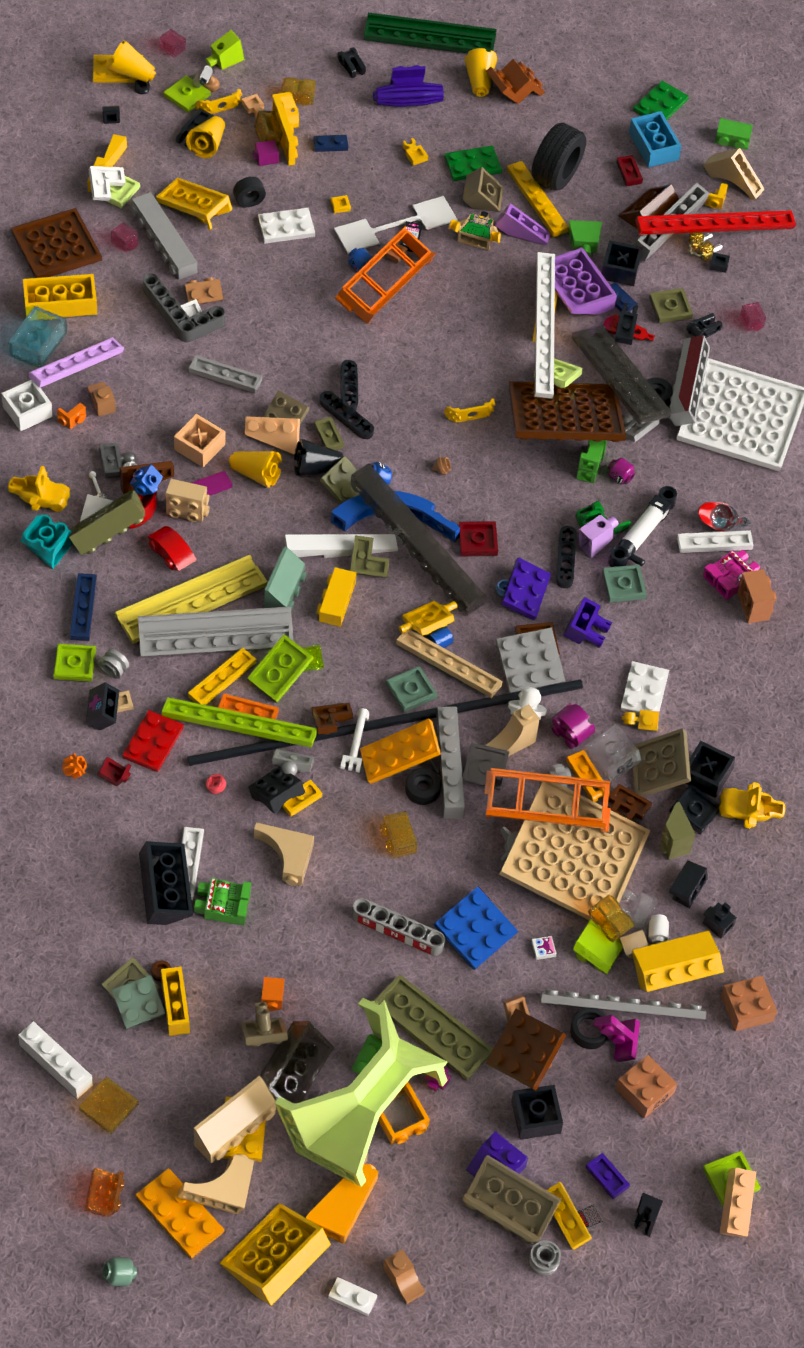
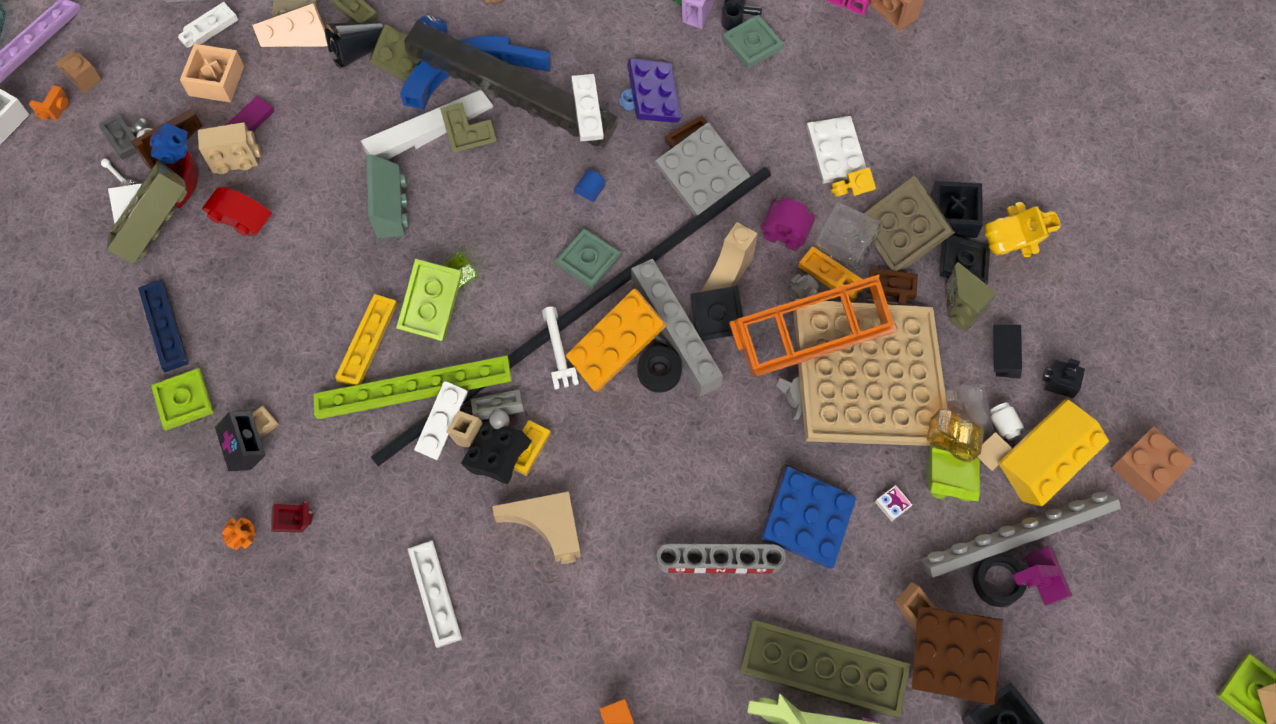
camera: 20 degrees left, 10 degrees up
(40, 491) = (50, 208): yellow piece -> none
(47, 539) = (82, 262): teal piece -> none
(113, 663) = (229, 380): light grey wheel -> none
(153, 741) = (320, 455): red plate -> none
(165, 882) = (419, 636): black slope -> none
(197, 594) = (285, 262): light yellow plate -> none
(212, 402) = (207, 25): none -> white hinge
(213, 631) = (330, 289): light grey plate -> none
(216, 783) = (420, 475): coral tile -> none
(224, 901) = (502, 624): bright green hips -> none
(247, 706) = (413, 363): orange plate -> none
(248, 752) = (442, 414): none -> white plate
(257, 465) = (292, 75): yellow cone -> none
(261, 764) = (464, 429): none -> tan brick
(326, 716) = (510, 332): reddish brown plate -> none
(336, 596) = (452, 187): yellow brick -> none
(398, 834) = (663, 441): clear yellow brick -> none
(428, 618) = (566, 168): yellow plate -> none
(449, 663) = (614, 210): tan plate -> none
(465, 579) = (587, 107): none -> white plate
(478, 538) = (574, 56): dark red plate -> none
(528, 696) = (725, 217): white plate -> none
(566, 557) = (676, 38): black beam -> none
(581, 621) = (734, 99): dark purple brick -> none
(646, 1086) = (1103, 625): nougat brick -> none

